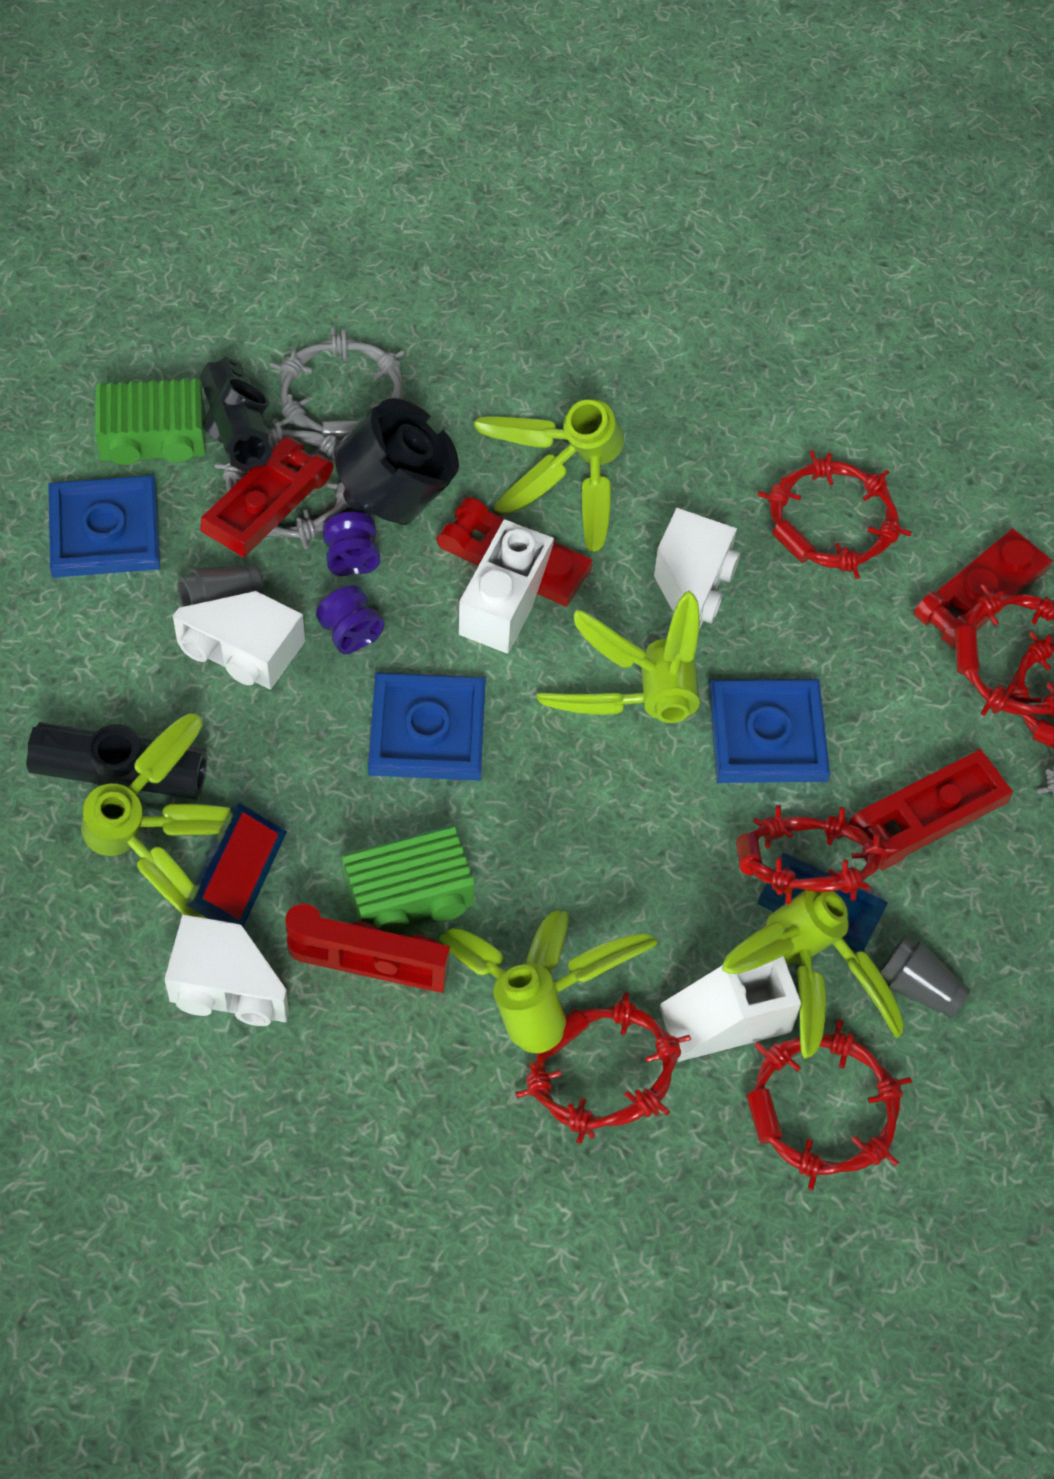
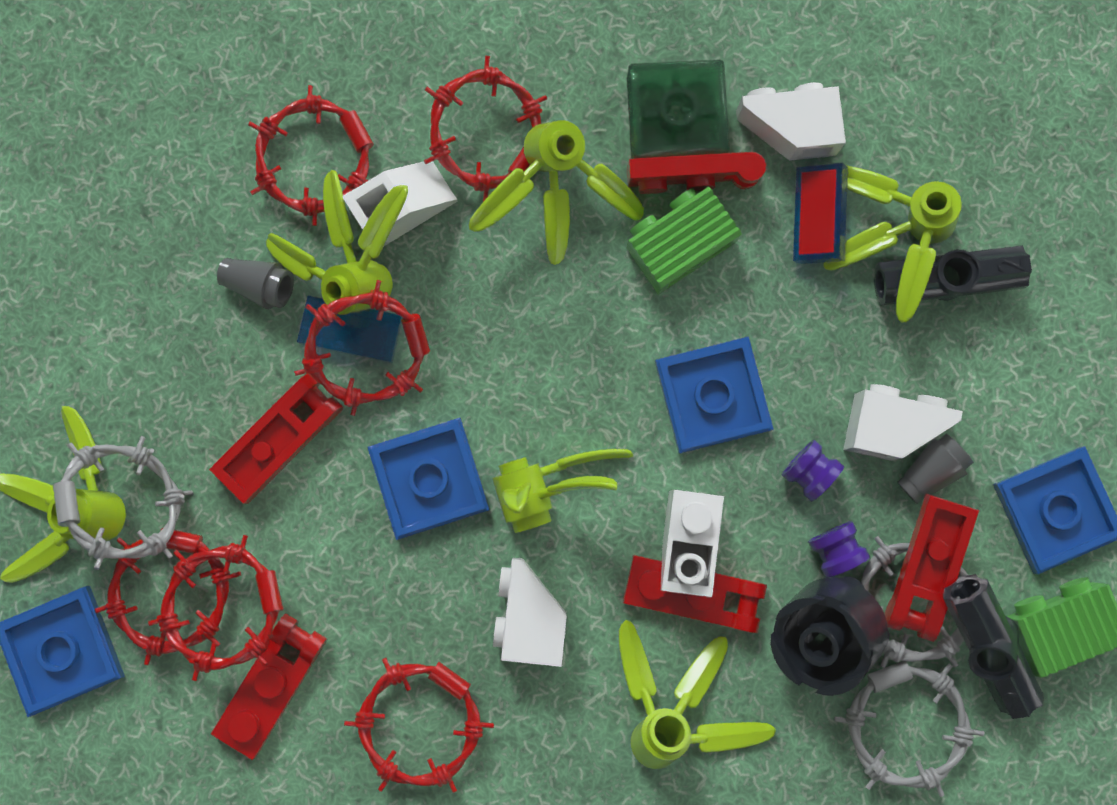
camera: 165 degrees right, 25 degrees up
(338, 995) = (698, 91): none -> clear green brick

